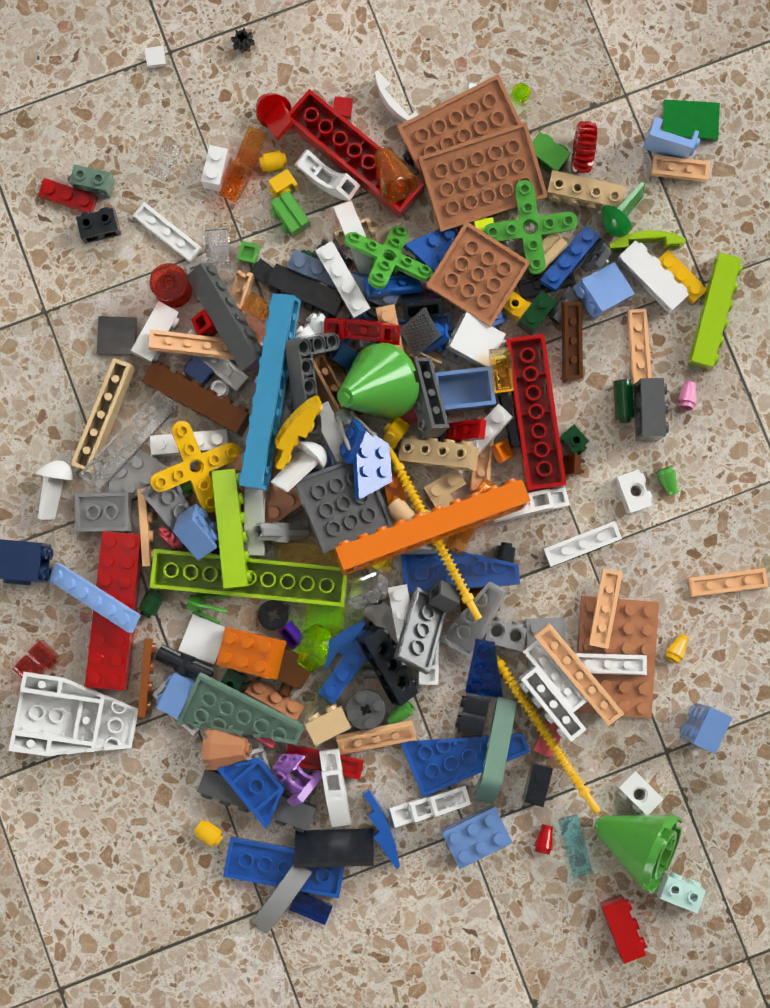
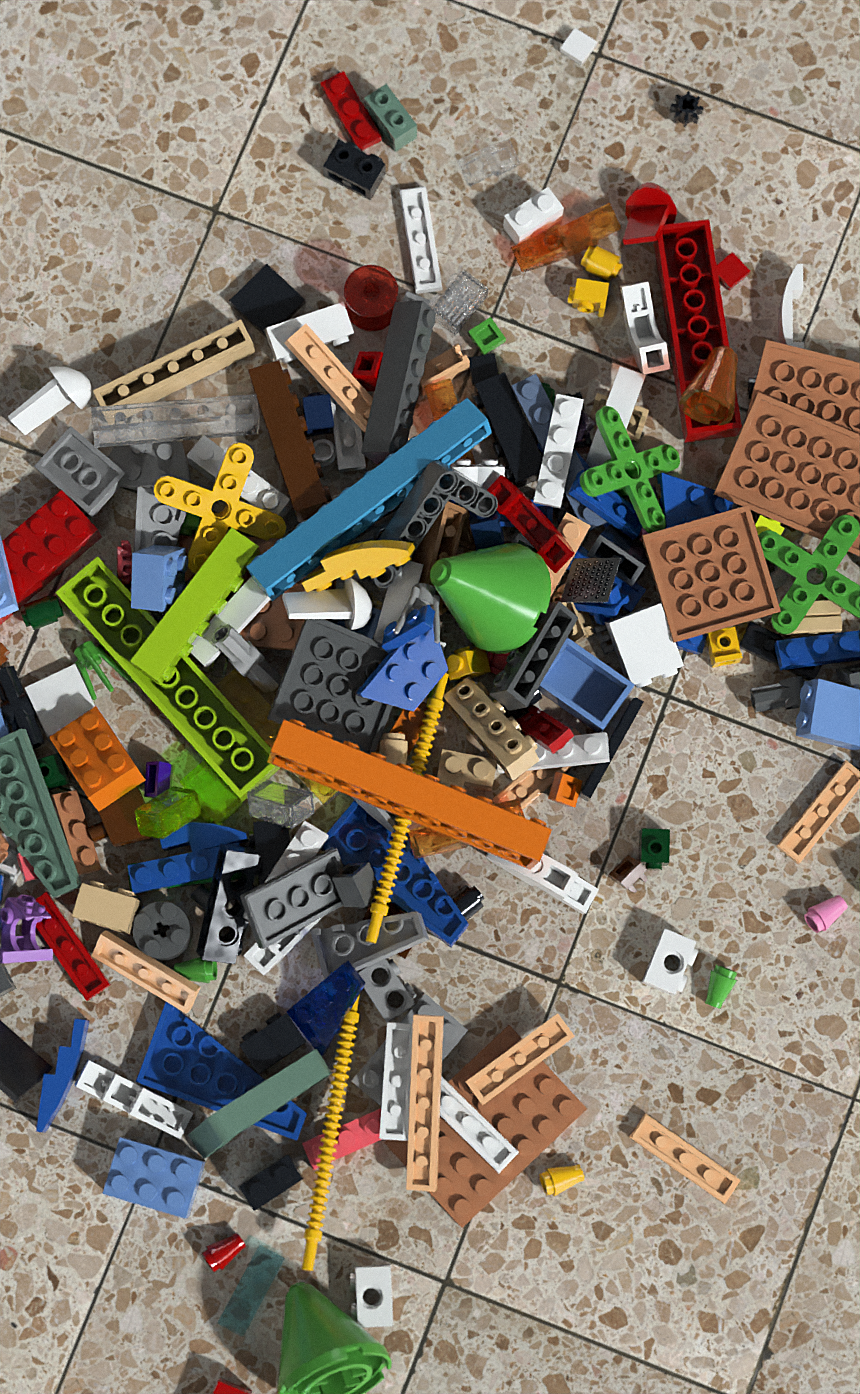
camera: 40 degrees right, 5 degrees down
(147, 535) = (104, 536): light nougat plate -> none
(270, 606) = (146, 737): black gear -> none
(290, 214) = (568, 335): bright green brick -> none
(335, 787) = (51, 984): white slope -> none
(501, 369) = (641, 698): clear yellow slope -> none
(535, 414) = (638, 779): red brick -> none
(536, 313) = (739, 674): dark green brick -> none
(552, 703) = (366, 1106): white brick -> none
(572, 340) = (751, 737): reddish brown plate -> none
(582, 544) = (561, 968): white plate -> none
(623, 400) = (749, 854): dark green brick -> none
(650, 409) = (769, 889): dark grey brick -> none
(705, 727) = (509, 1287): medium blue piece -> none

